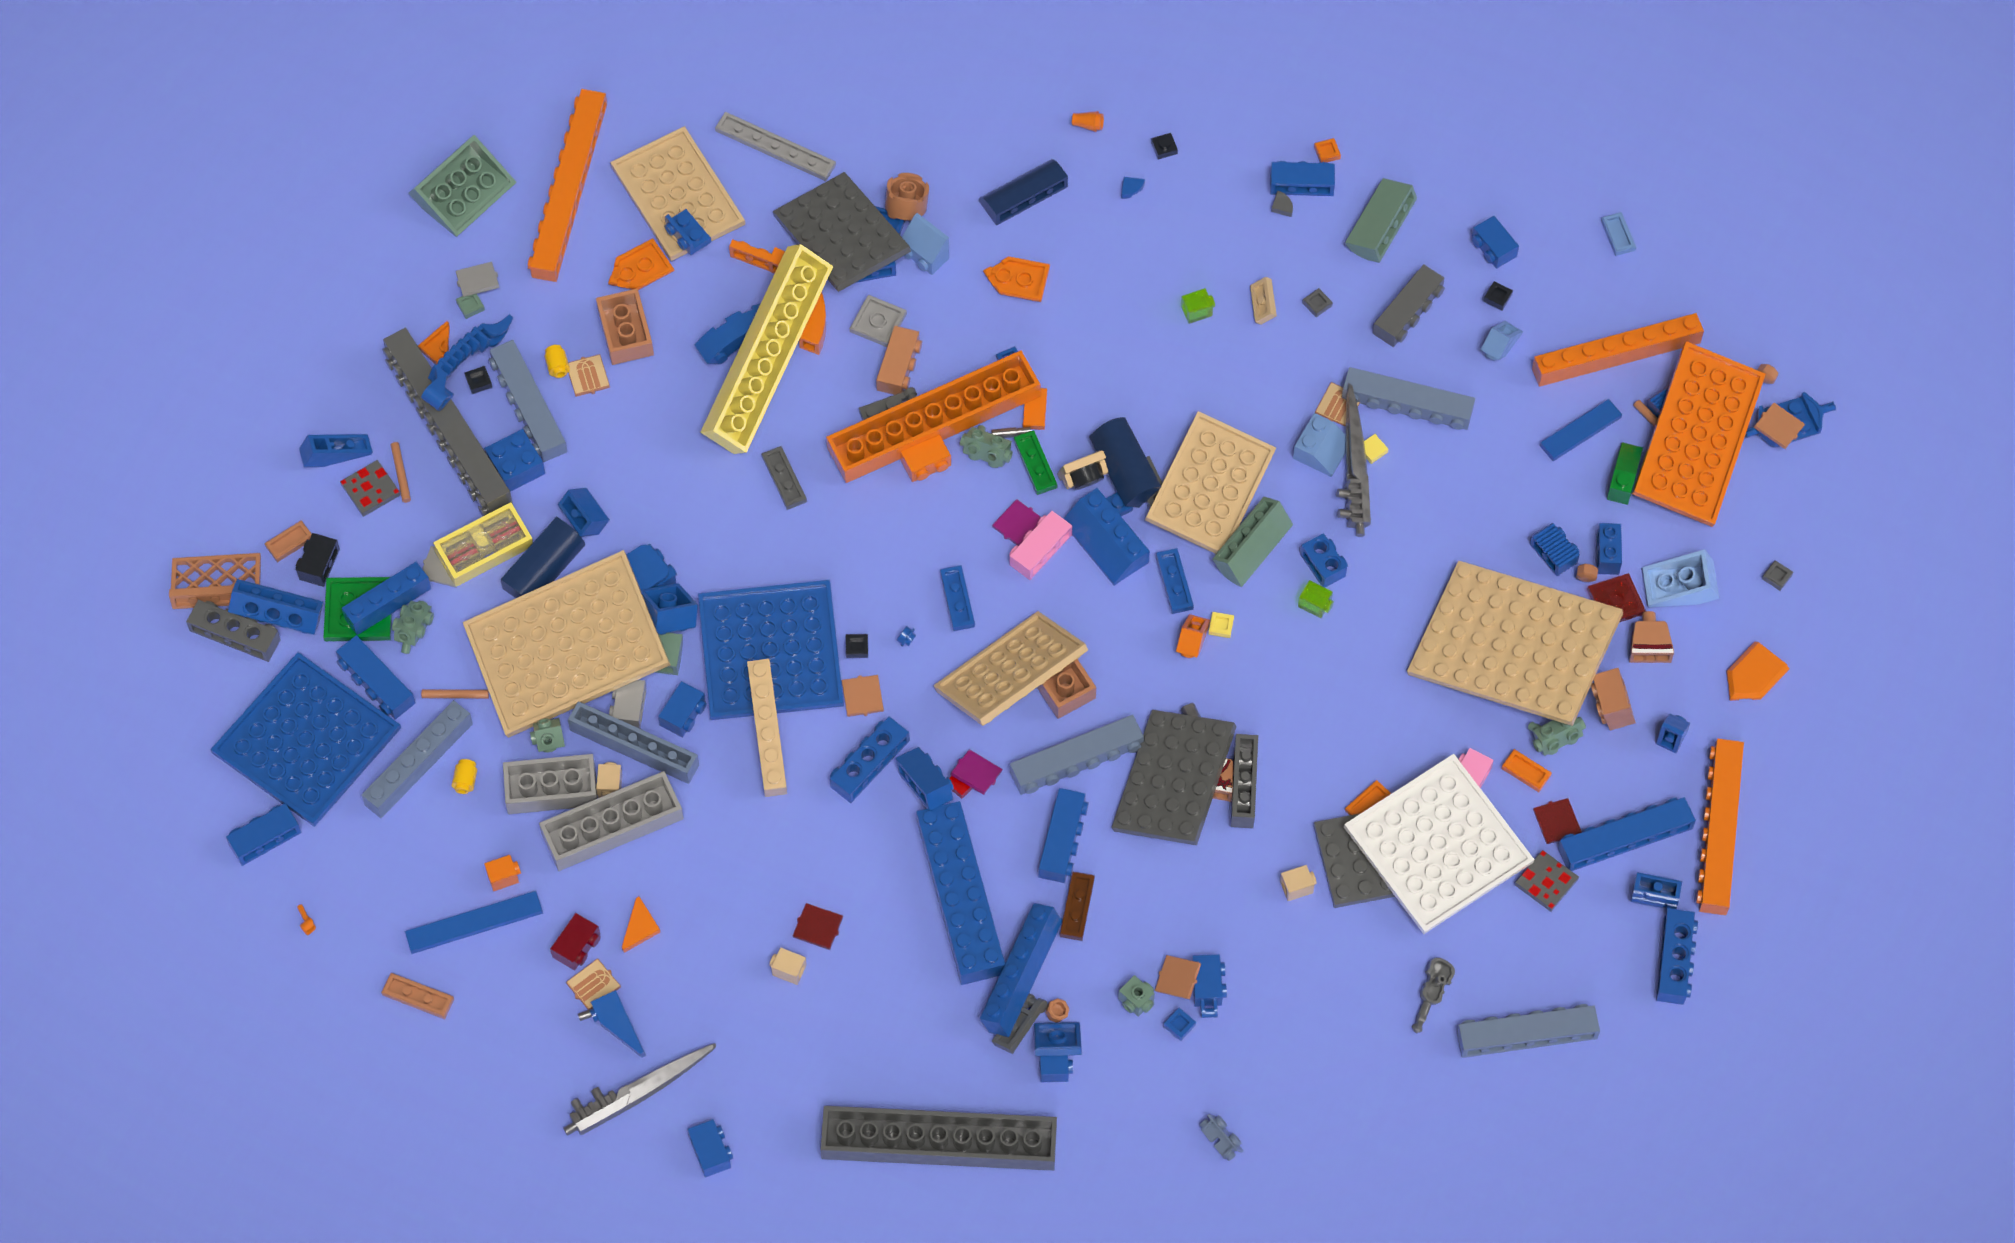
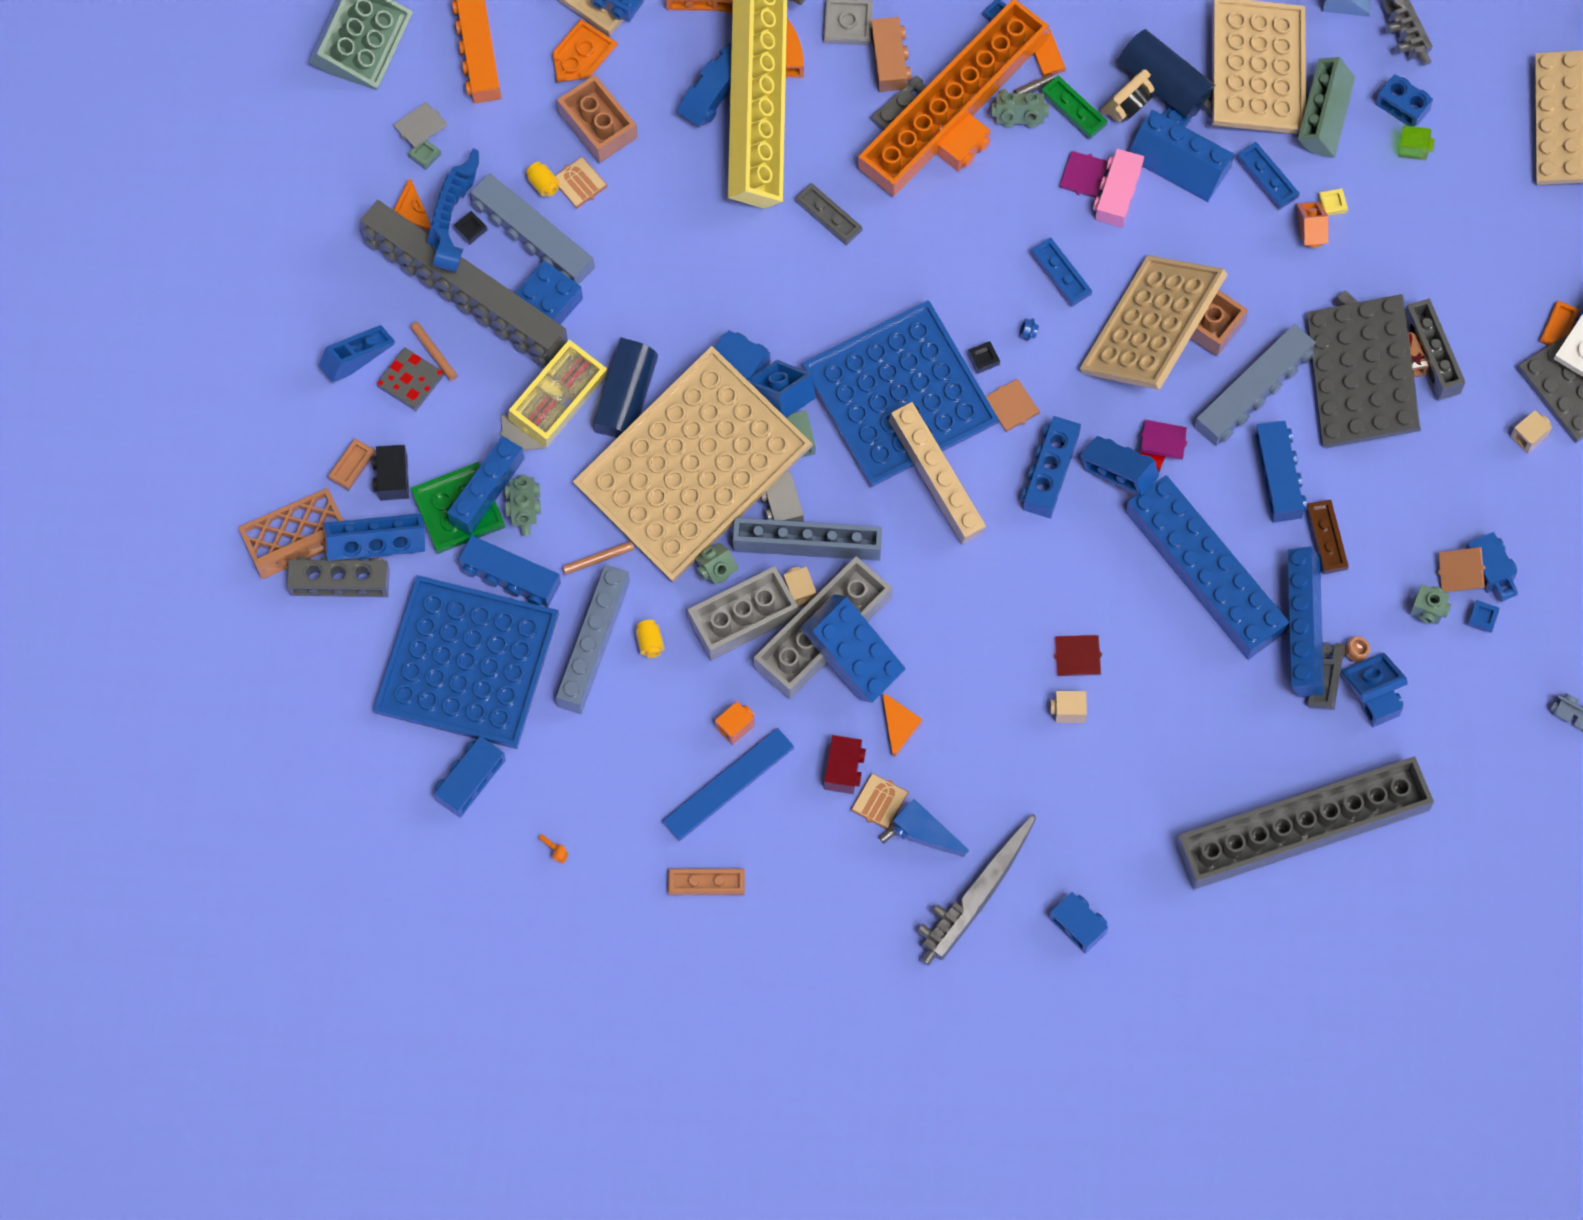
camera: 20 degrees left, 5 degrees up
(583, 512) = (644, 323): blue brick -> none
(623, 846) = (853, 648): none -> blue brick
(682, 709) = (839, 487): blue brick -> none

